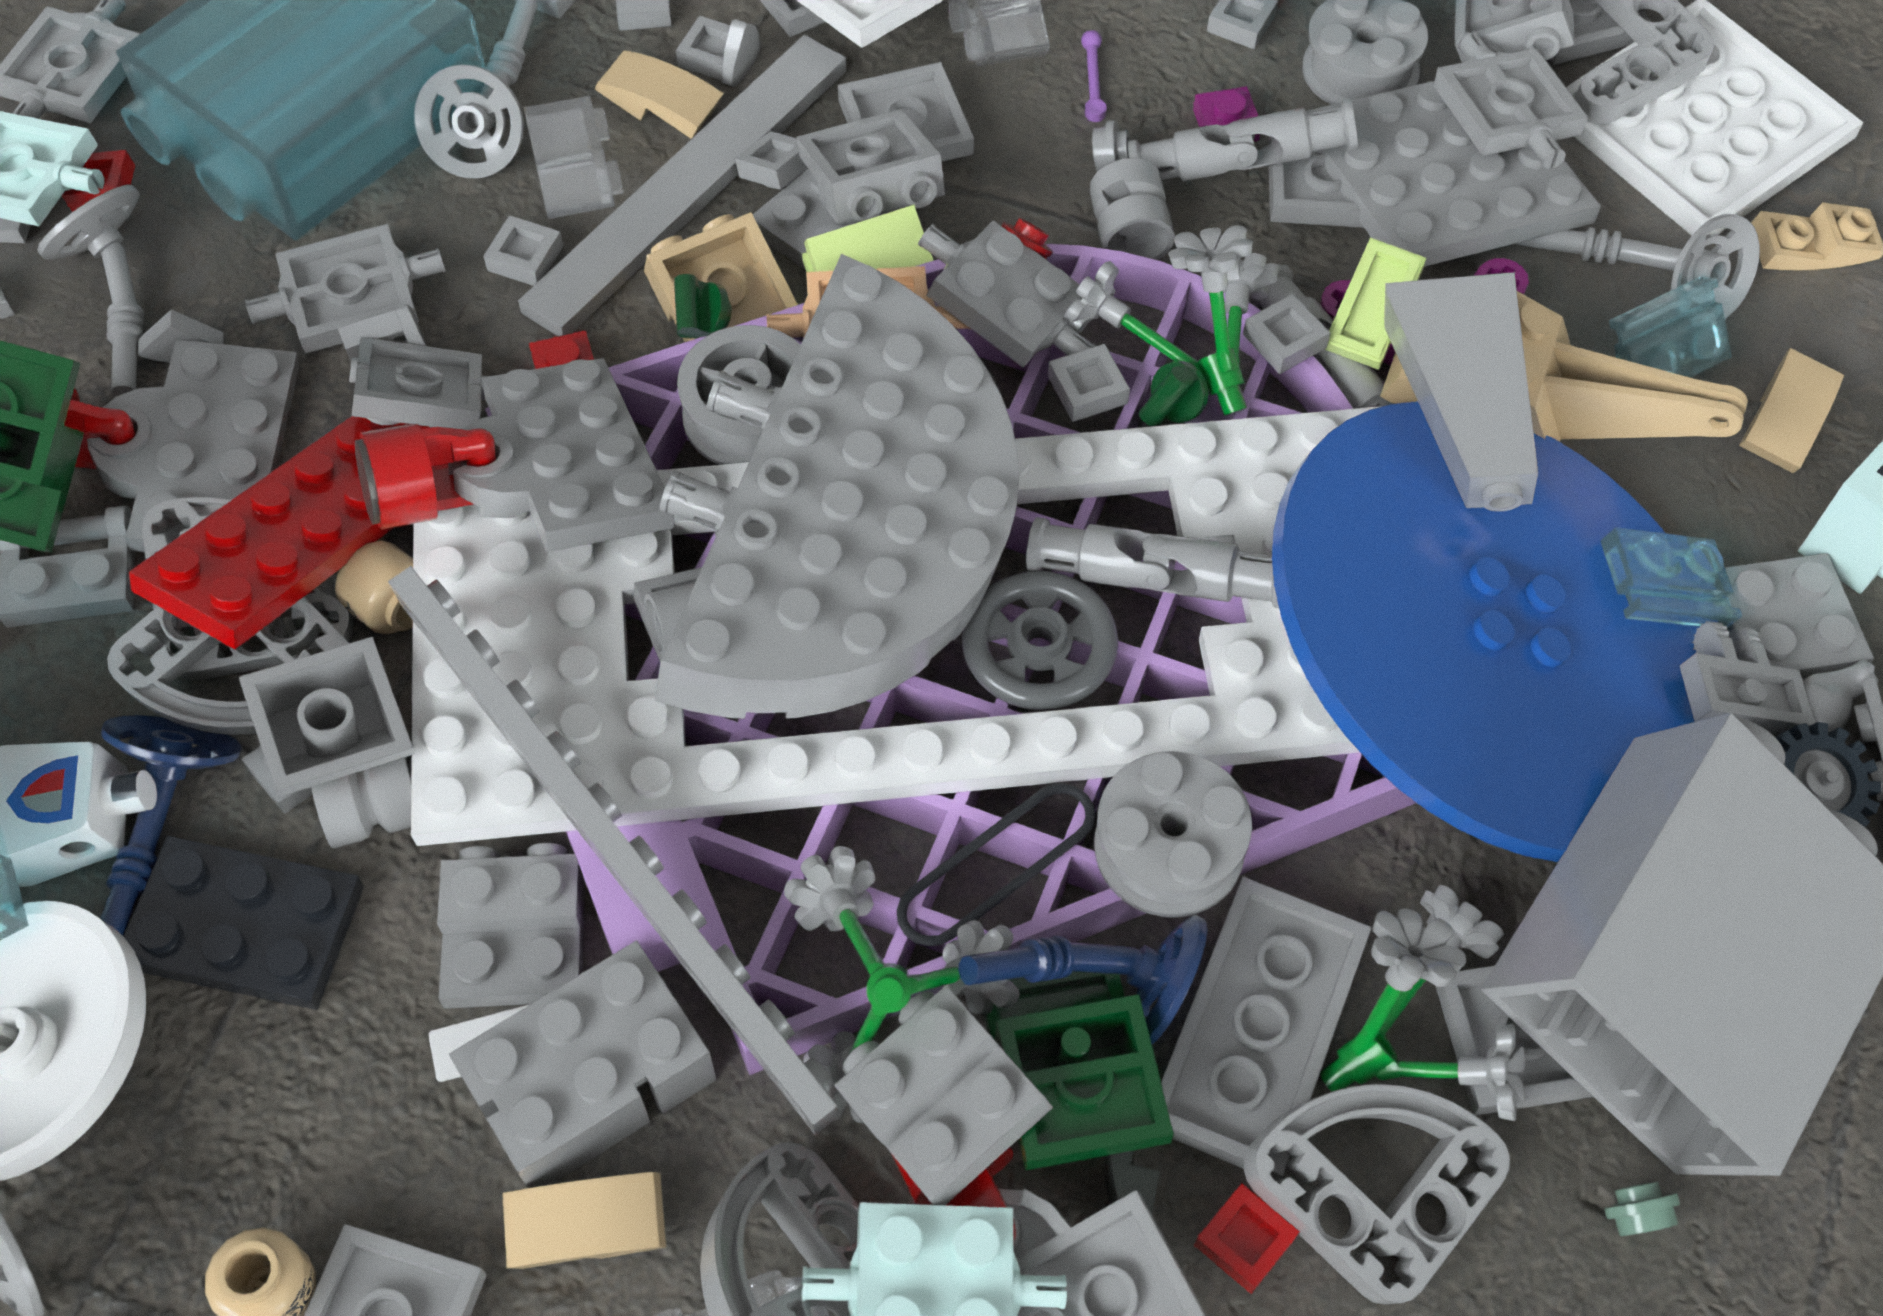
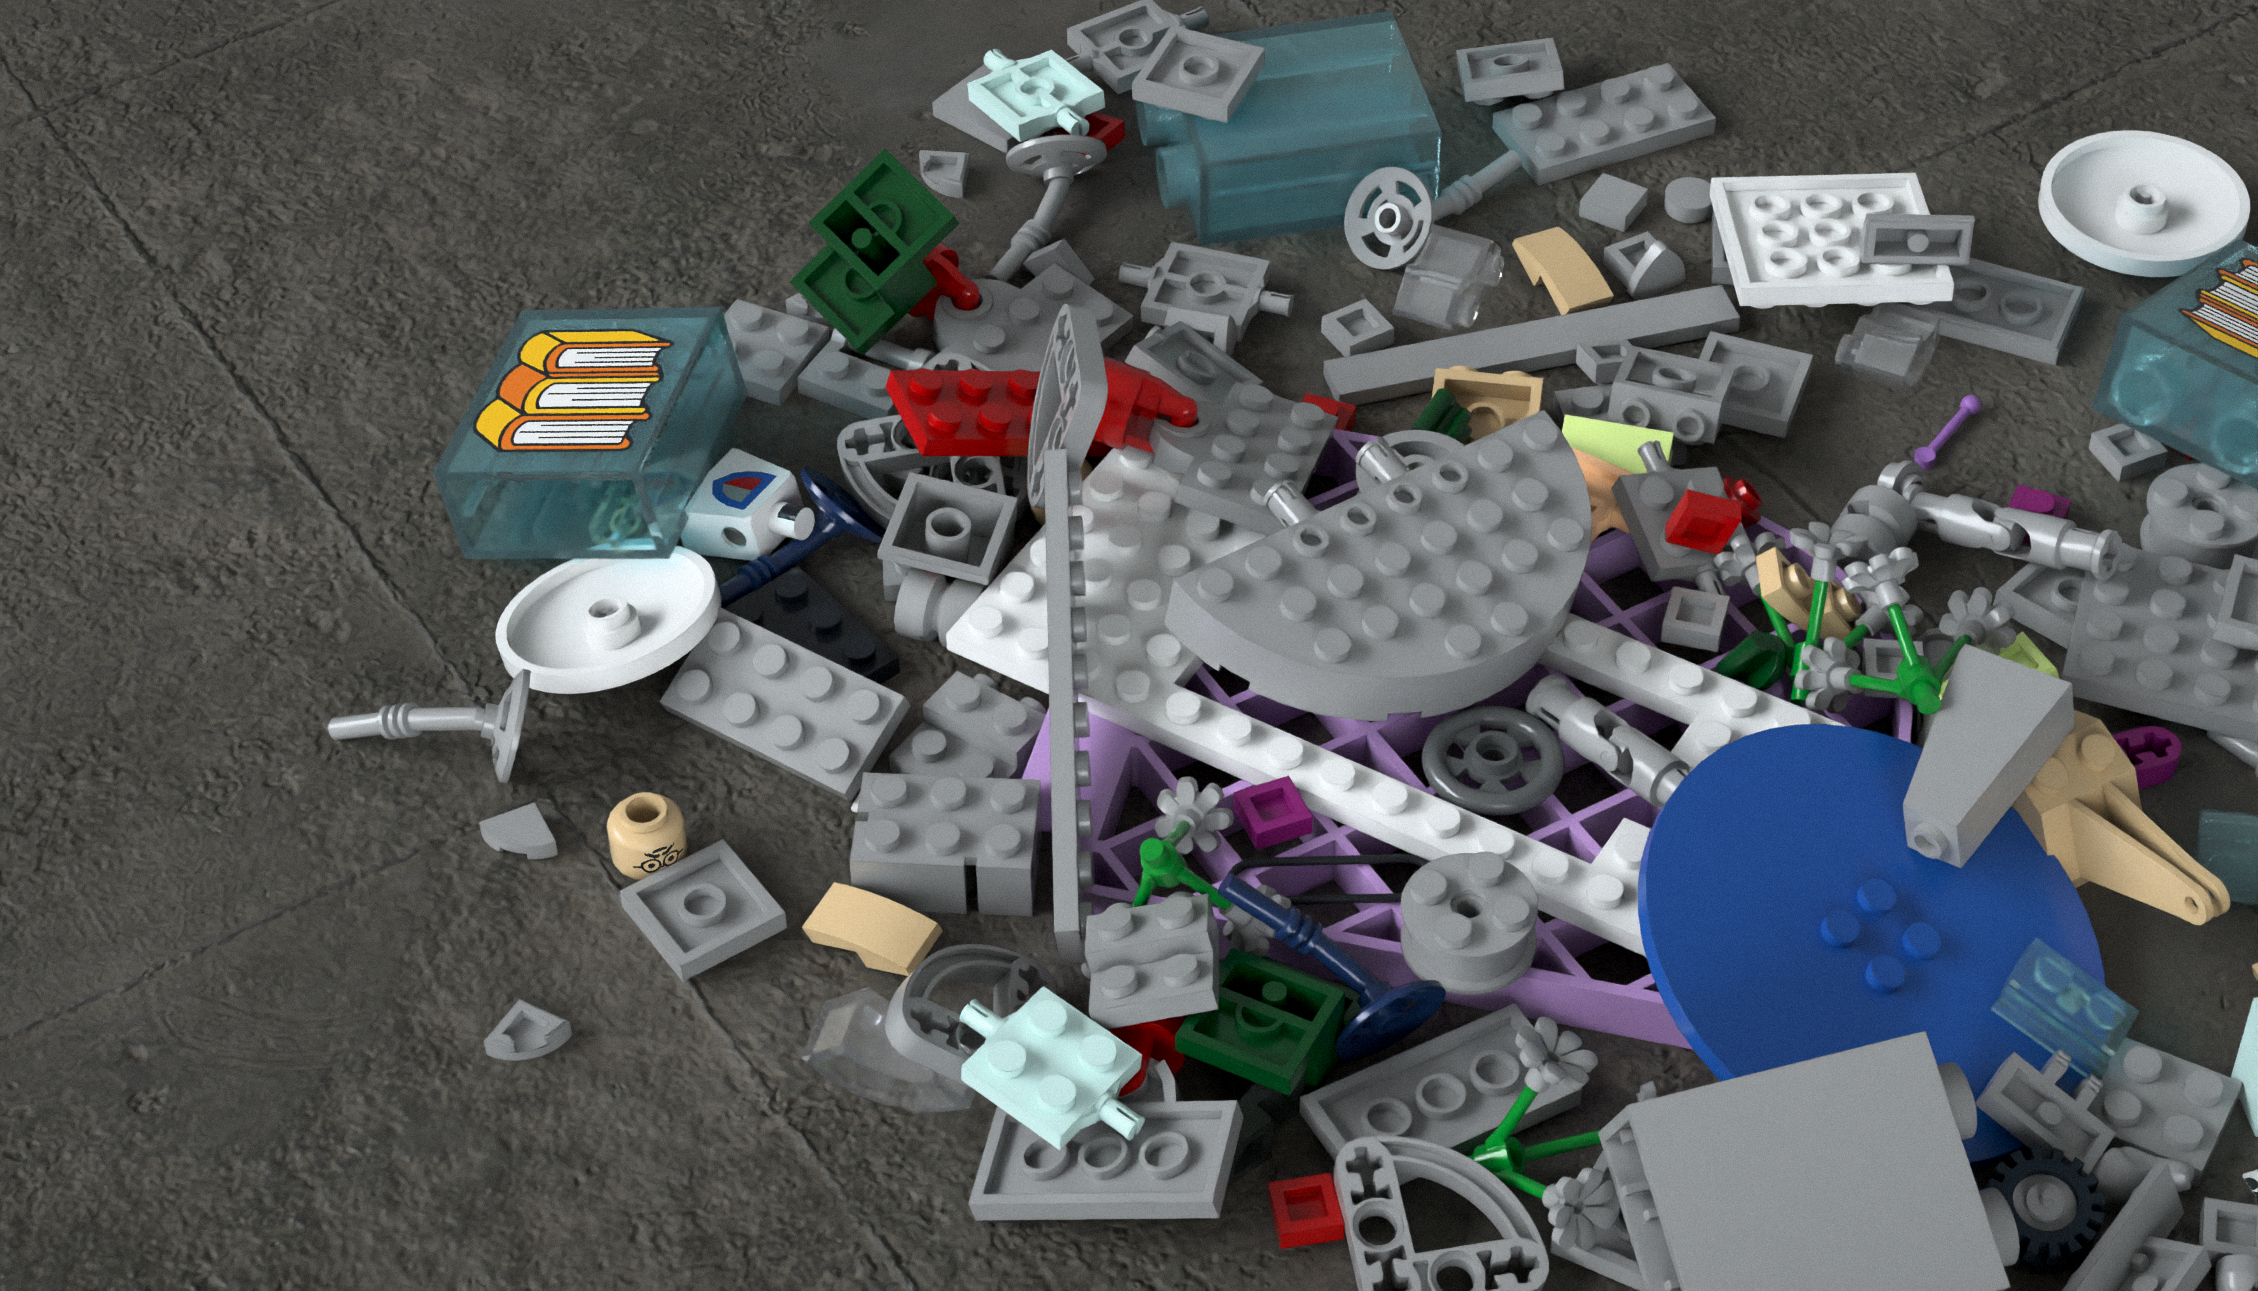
camera: 40 degrees right, 15 degrees down
(191, 66) = (1198, 74): none -> light grey plate
(284, 1014) = (785, 704): none -> light grey plate
(337, 457) = (1067, 396): none -> light grey beam
(894, 830) = (1272, 812): none -> magenta plate
(1048, 285) = (1703, 522): none -> red plate
(1170, 306) = (1791, 594): none -> tan slope
(1339, 260) = (1972, 622): none -> light grey plant

